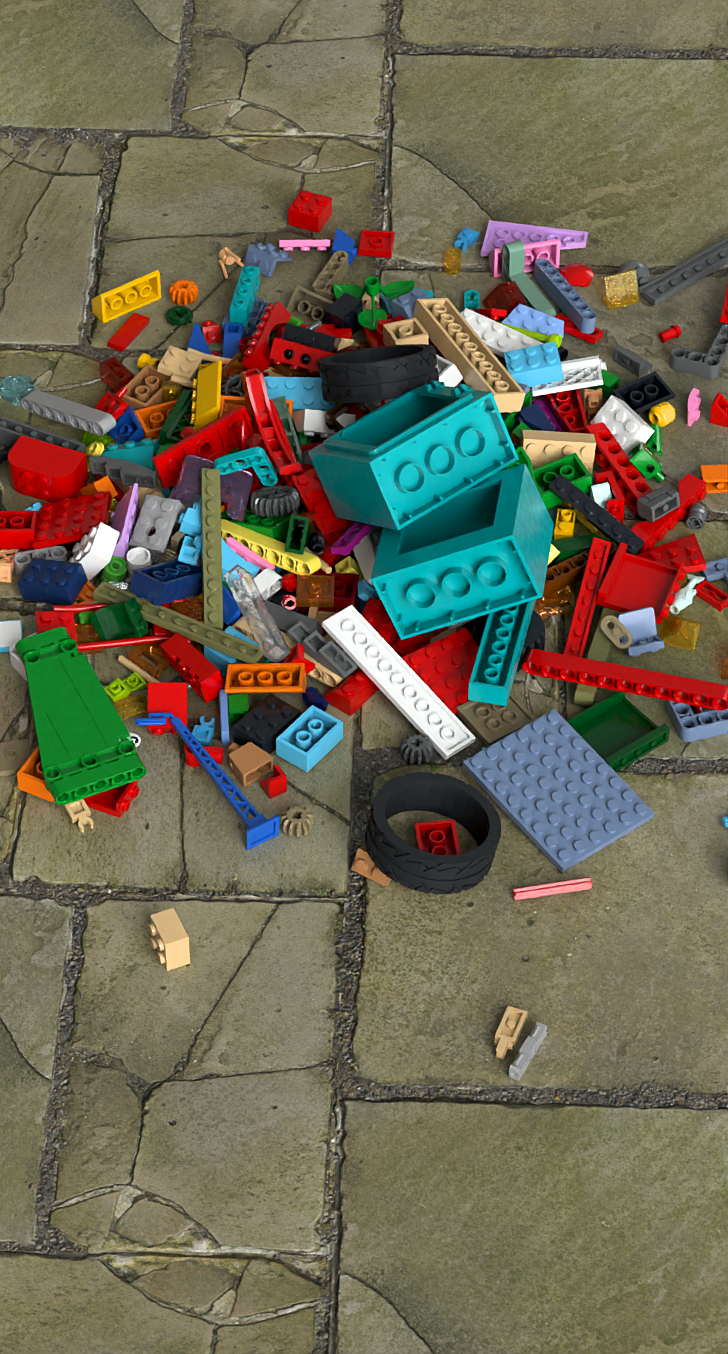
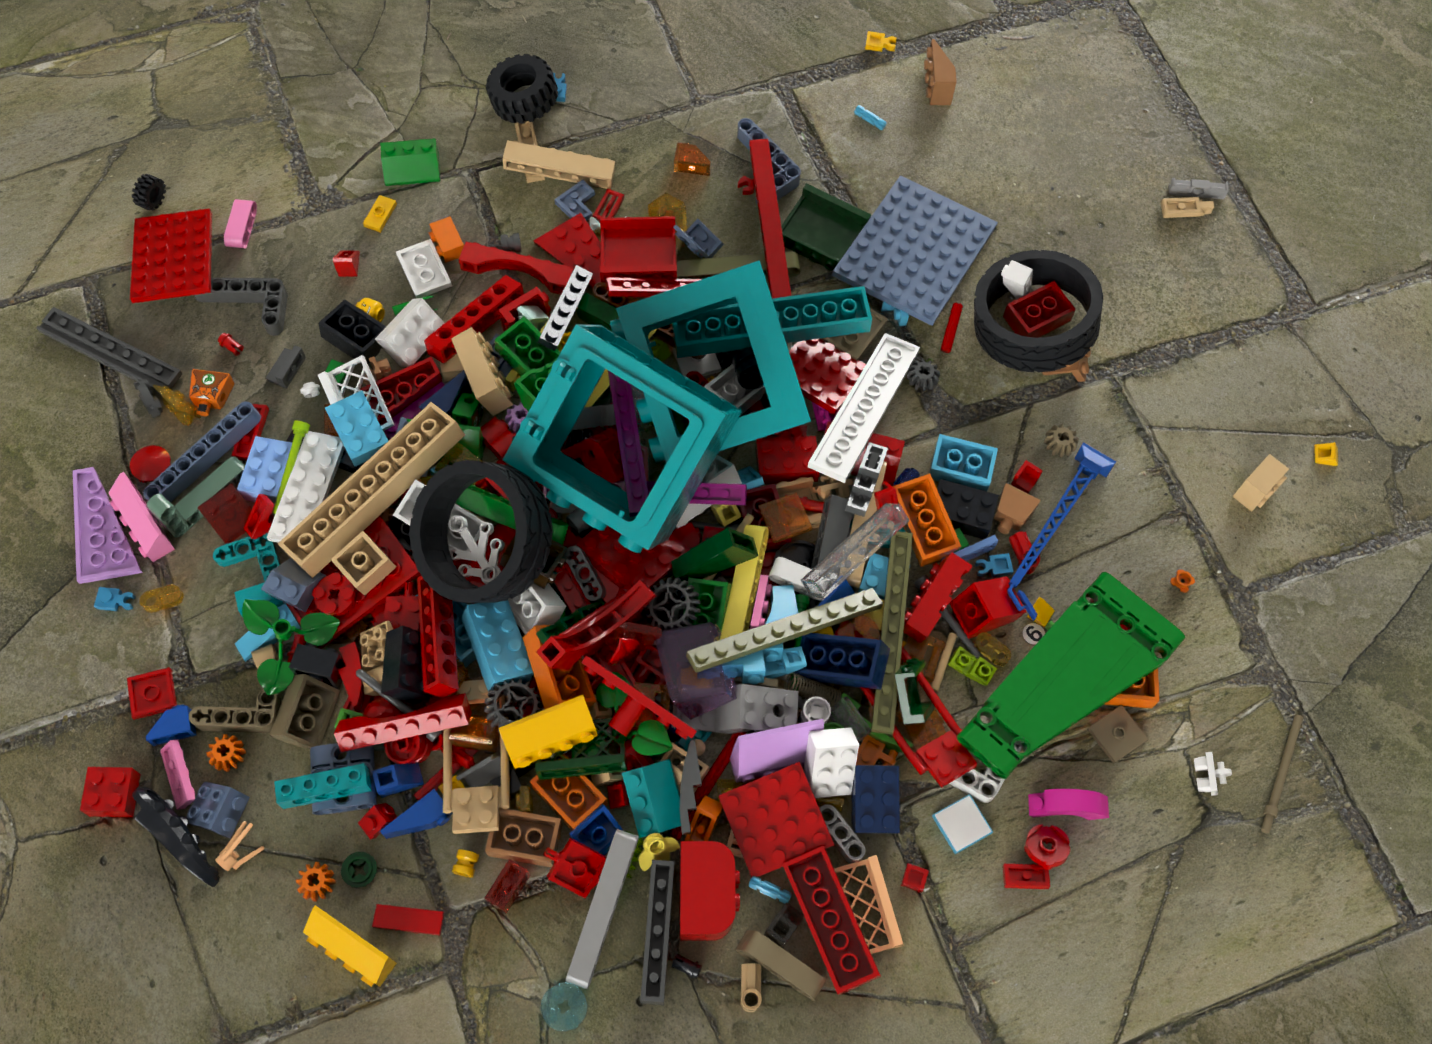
camera: 115 degrees left, 20 degrees up
(115, 855) = (1182, 575): none -> orange plate
(146, 747) = (1043, 610): none -> yellow slope
(174, 1024) = (1326, 454): none -> yellow slope
(257, 458) = (659, 615): teal beam -> none
(262, 231) = (173, 834): none -> black animal
(285, 598) = (809, 538): pin -> none
(289, 582) = (777, 551): red plate -> none
(306, 268) = (220, 747): none -> orange gear
(470, 825) = (1017, 279): none -> white slope
(552, 888) = (1021, 224): axle -> none
(617, 632) = (712, 250): dark tan plate -> none
(628, 313) = (209, 390): none -> torso
(643, 456) = (458, 298): green torso -> none
(658, 503) = (521, 265): dark grey brick -> none
(689, 457) = (423, 269): none -> white plate
(693, 406) = (352, 290): bright pink slope -> none

